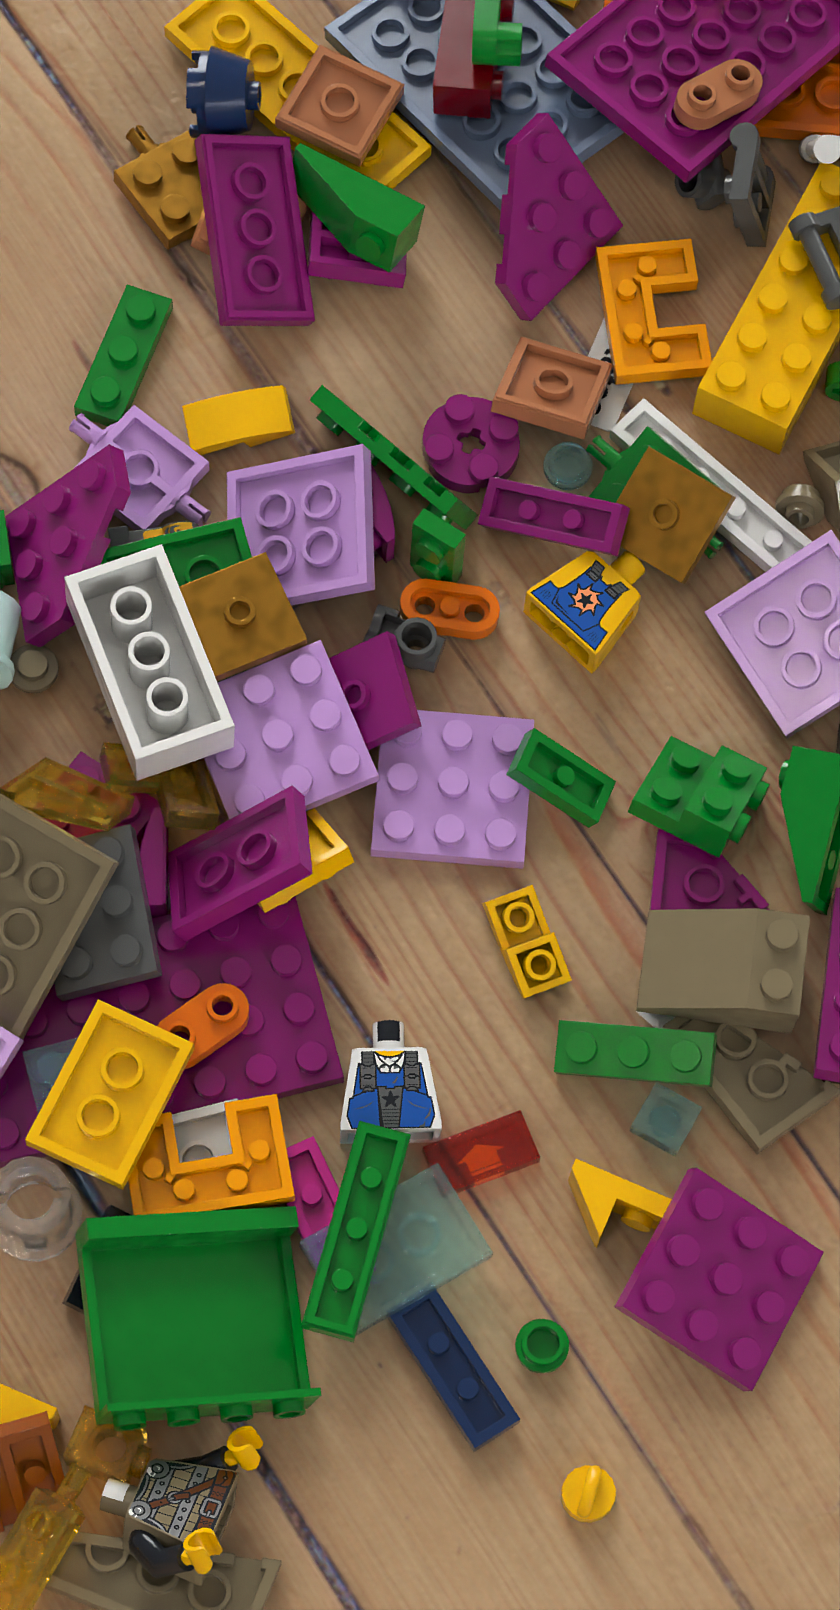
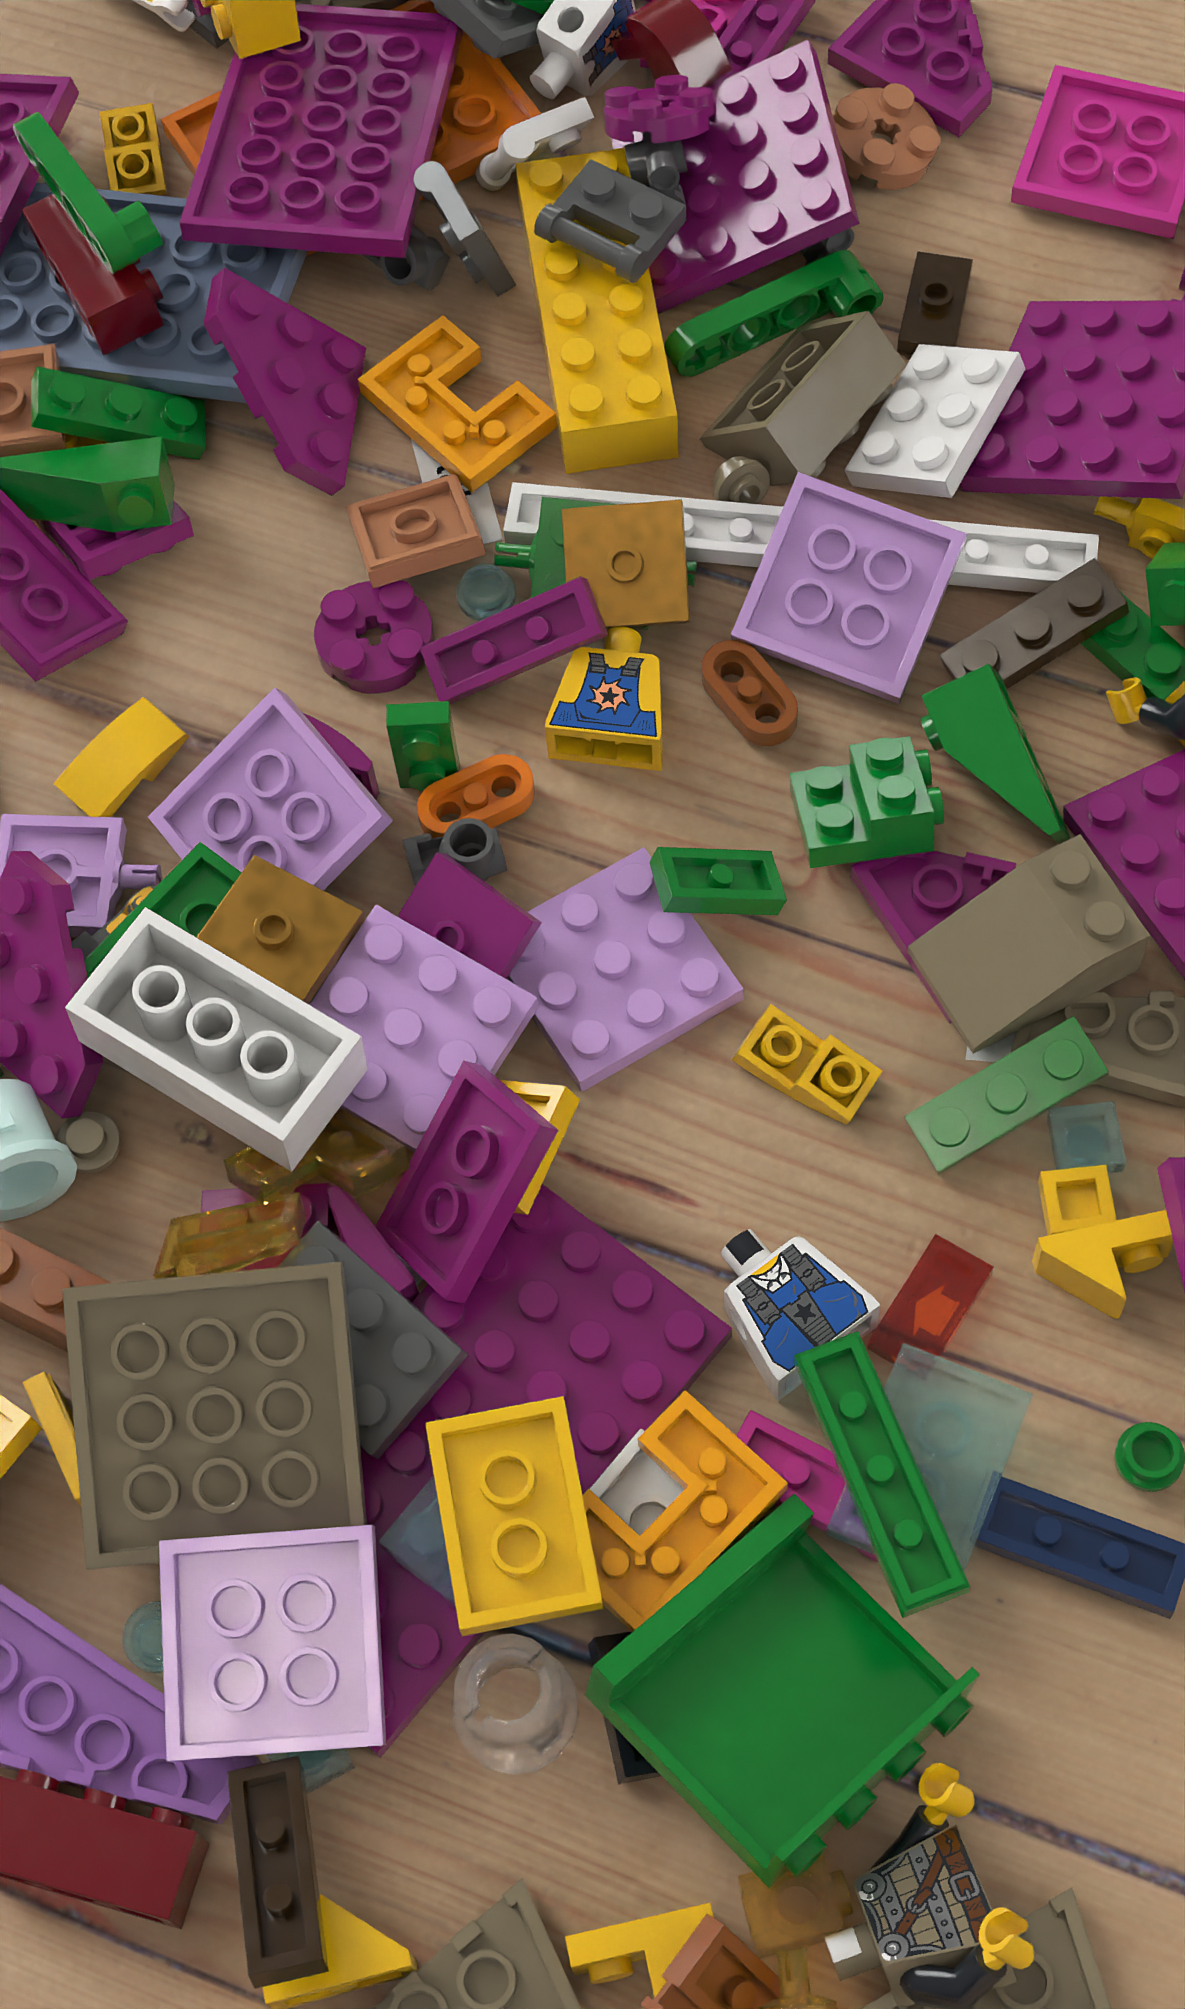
camera: 25 degrees left, 5 degrees down
(203, 1025) = (549, 1373): orange plate -> none
(406, 474) = (356, 693): green wing -> none
(412, 164) = (116, 412): none -> green plate
(627, 1153) = (1076, 1198): none -> yellow plate
(688, 664) = (753, 696): none -> dark orange plate
(722, 91) = (374, 158): nougat plate -> none

